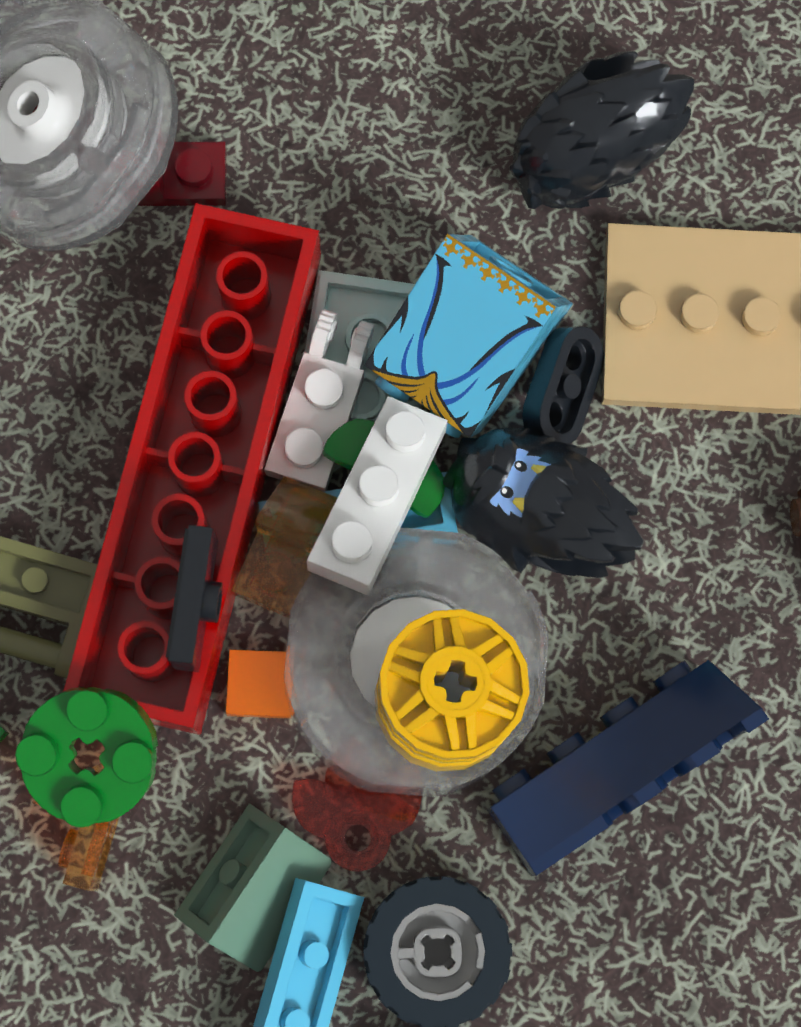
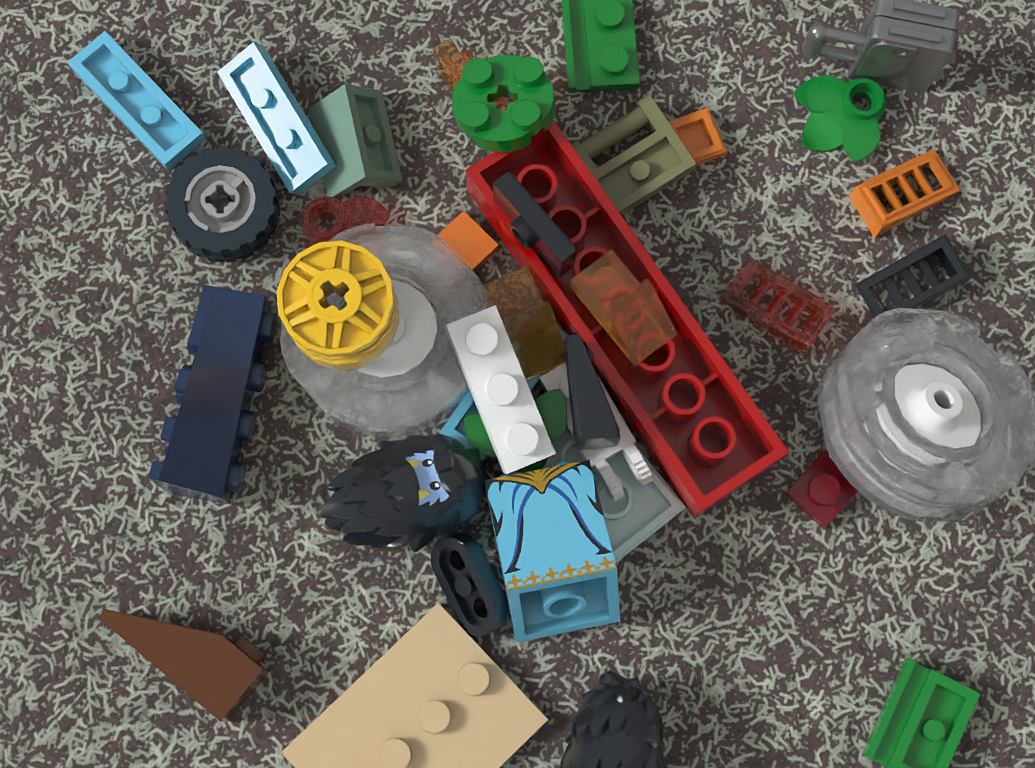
camera: 135 degrees right, 0 degrees up
(50, 297) = (782, 330): none -> clear red slope
(195, 454) = (624, 307): none -> clear orange slope
(318, 404) = (590, 410): none -> black slope

